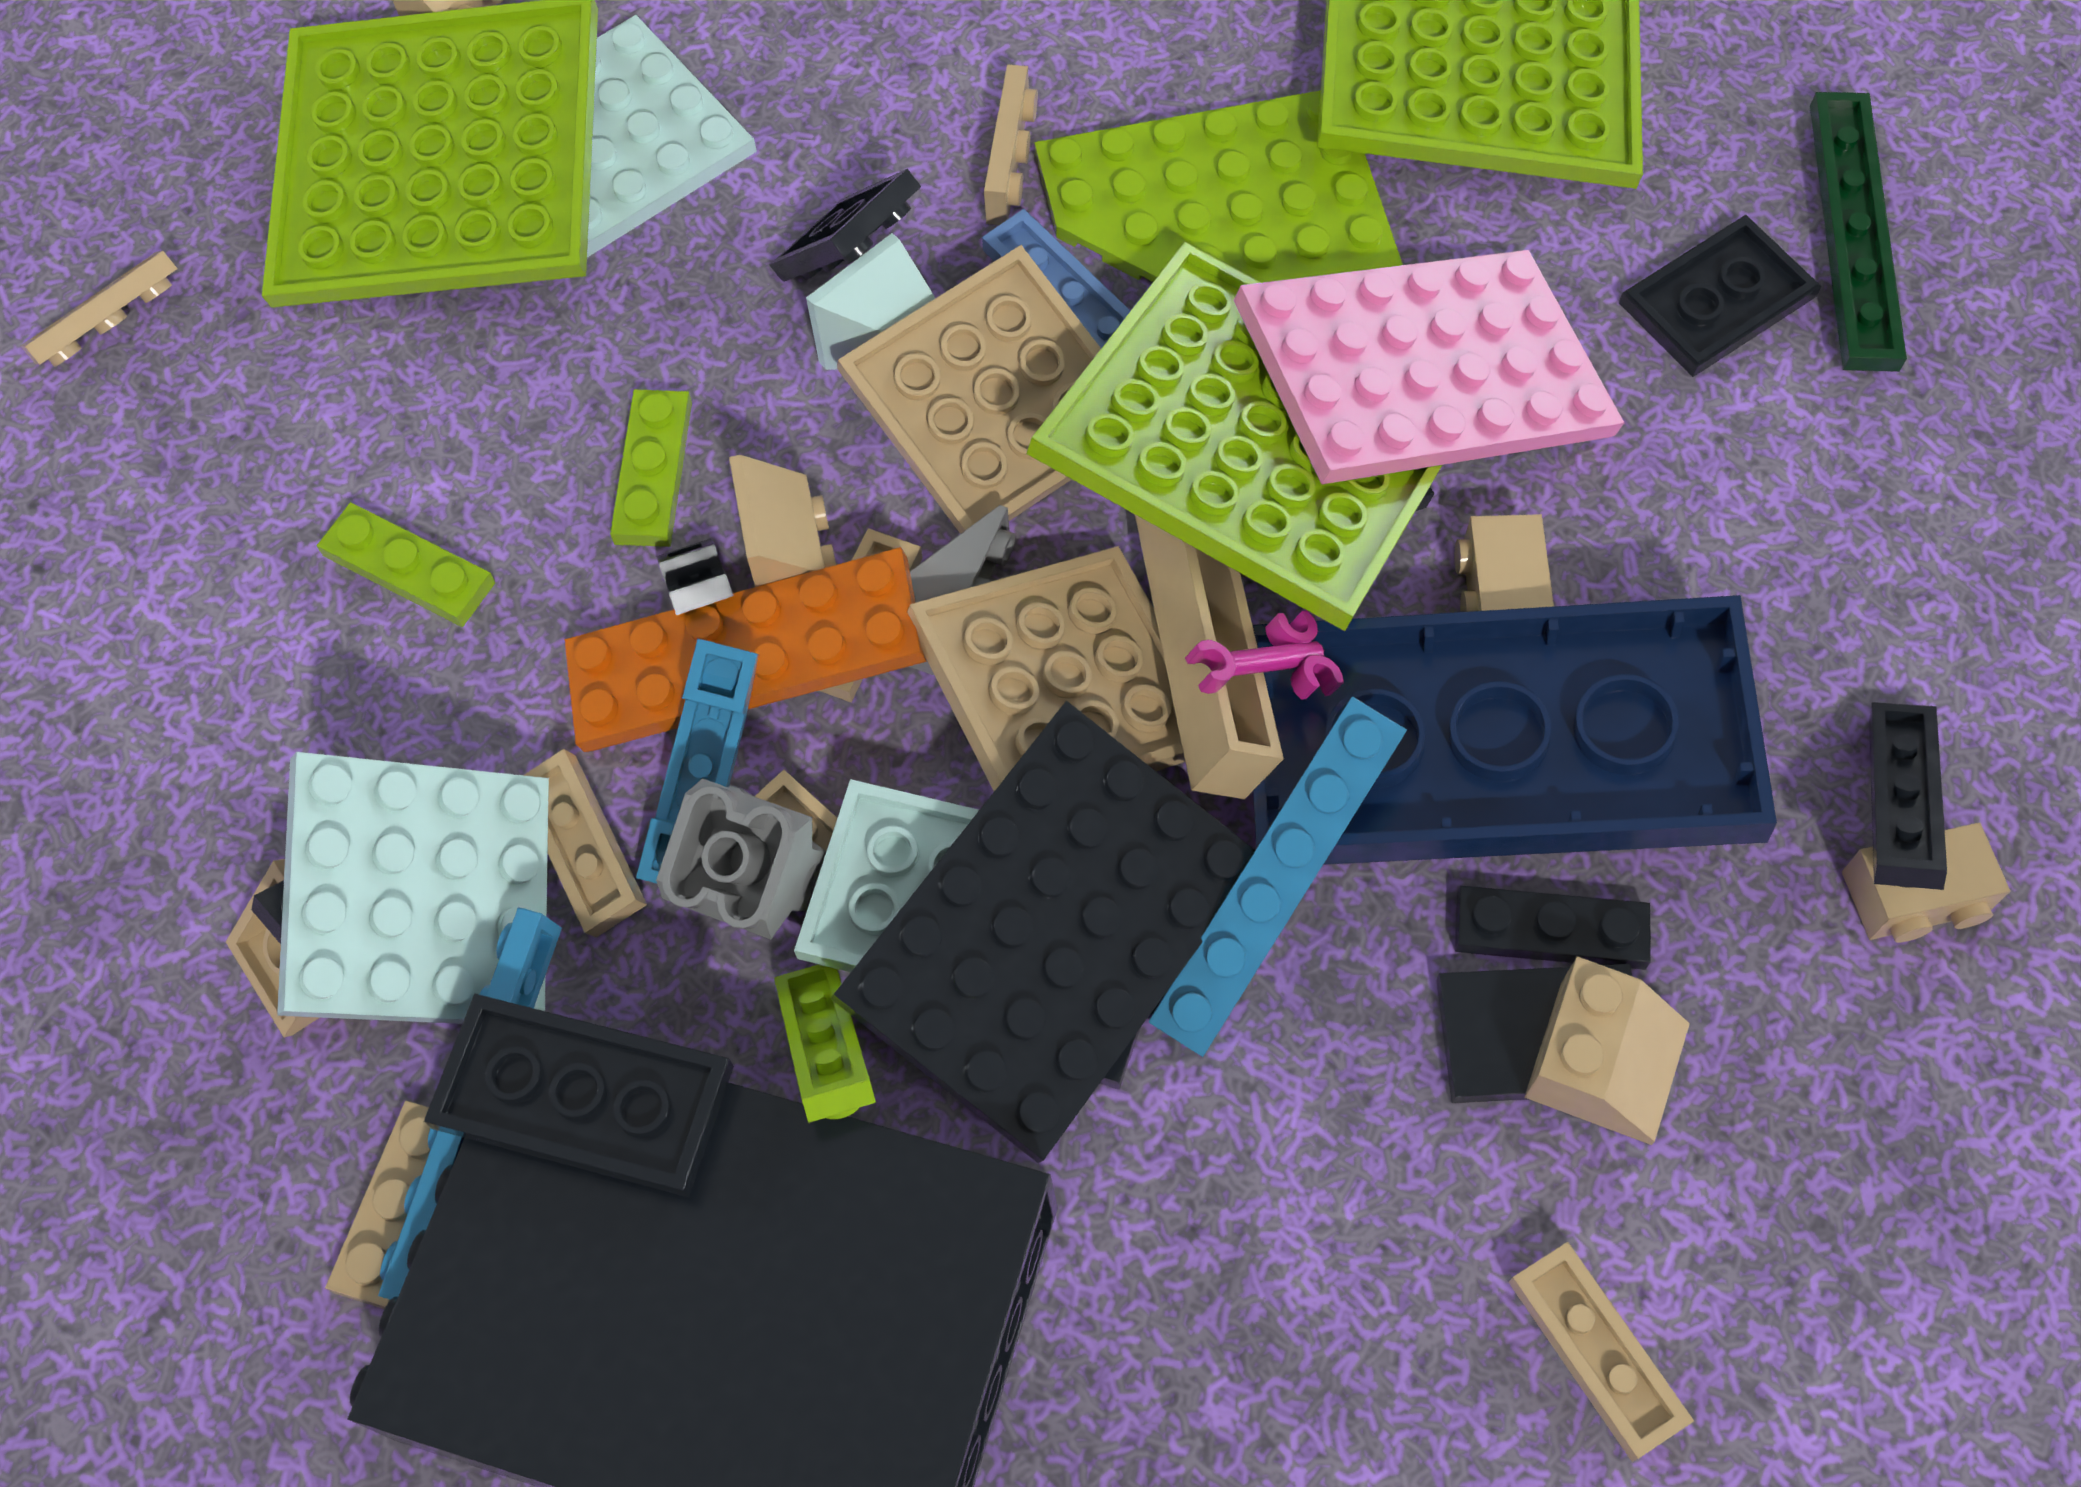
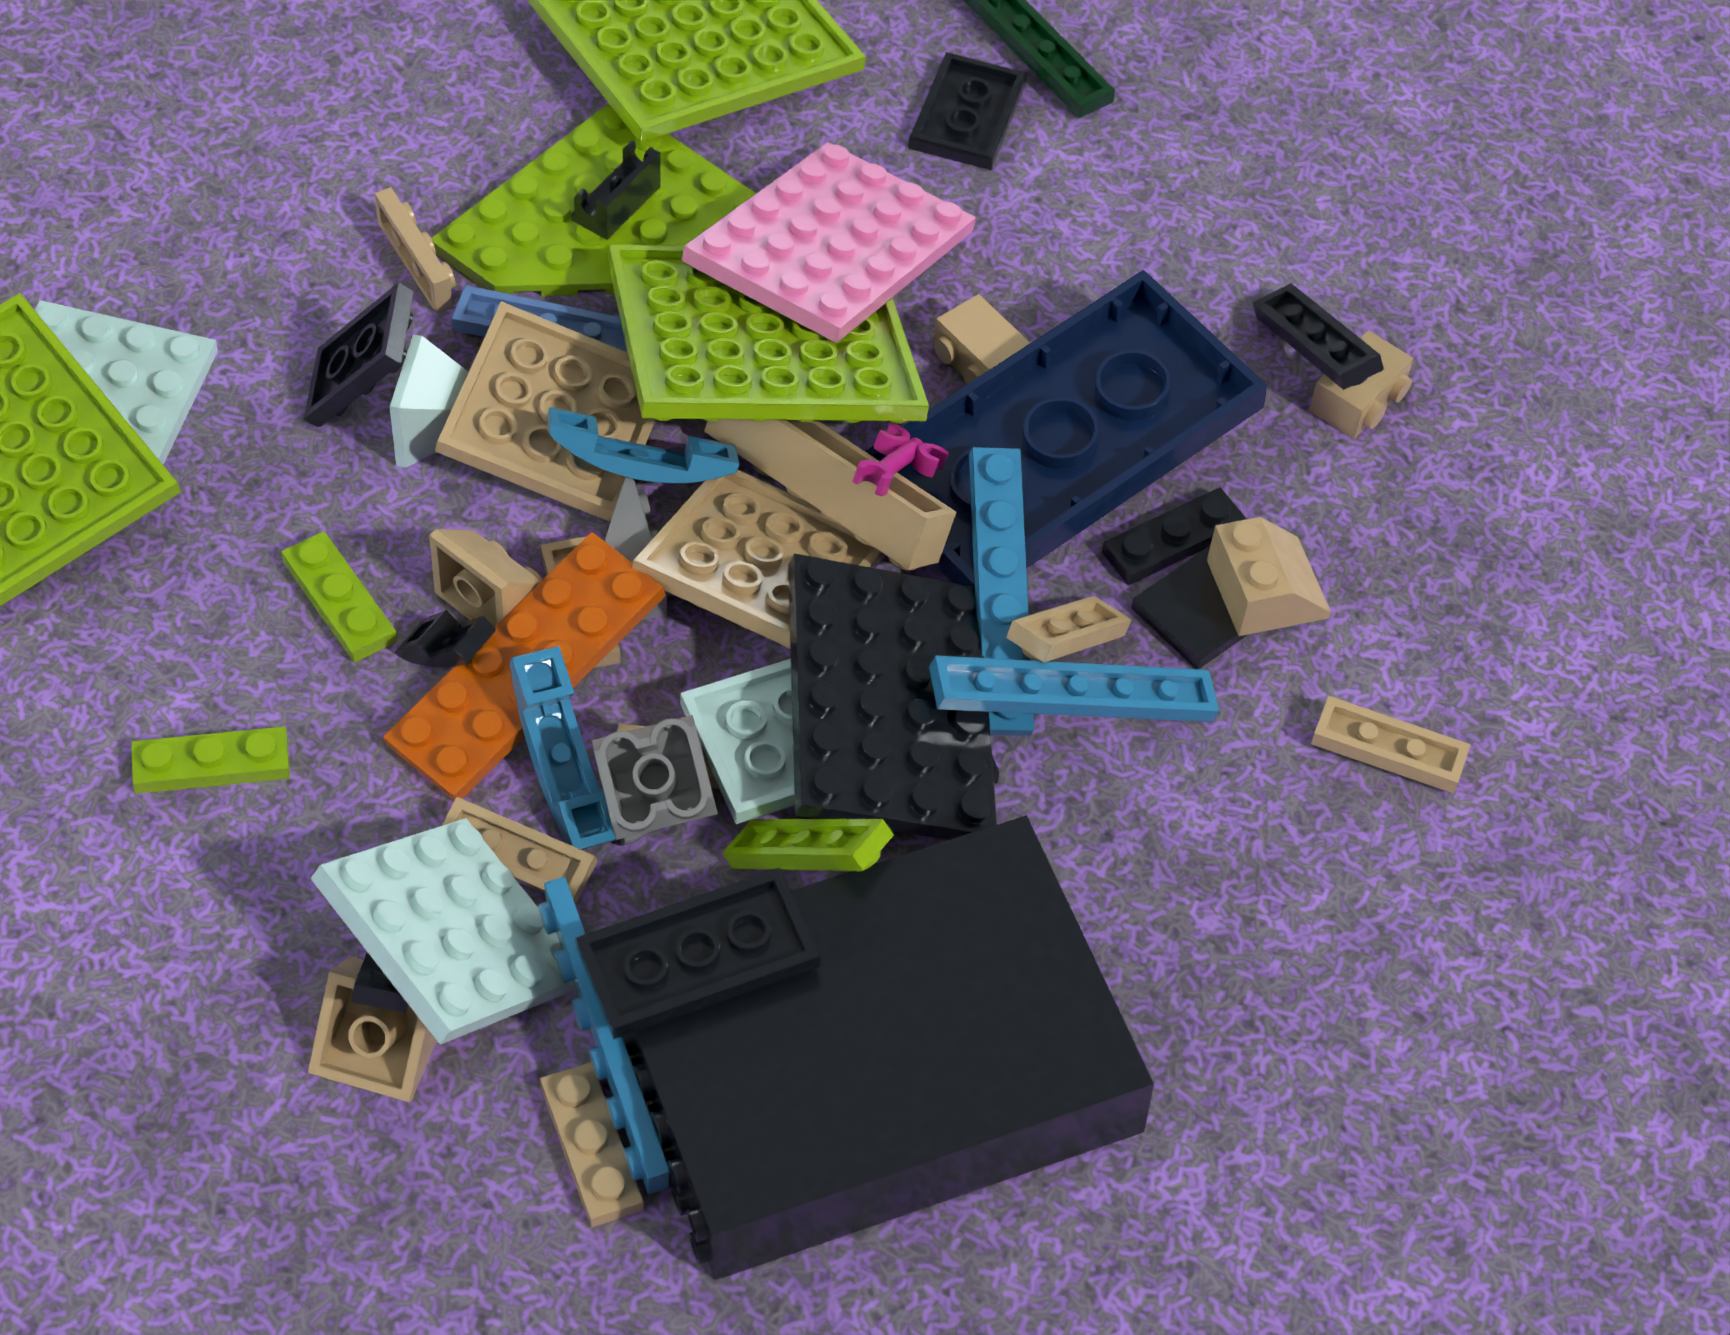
camera: 45 degrees left, 10 degrees down
(1021, 492) = (700, 461): none -> dark azure slope
(1248, 193) = (619, 193): none -> black hinge
(1266, 1046) = (1072, 689): none -> dark azure plate
(1320, 968) = (1068, 629): none -> tan plate

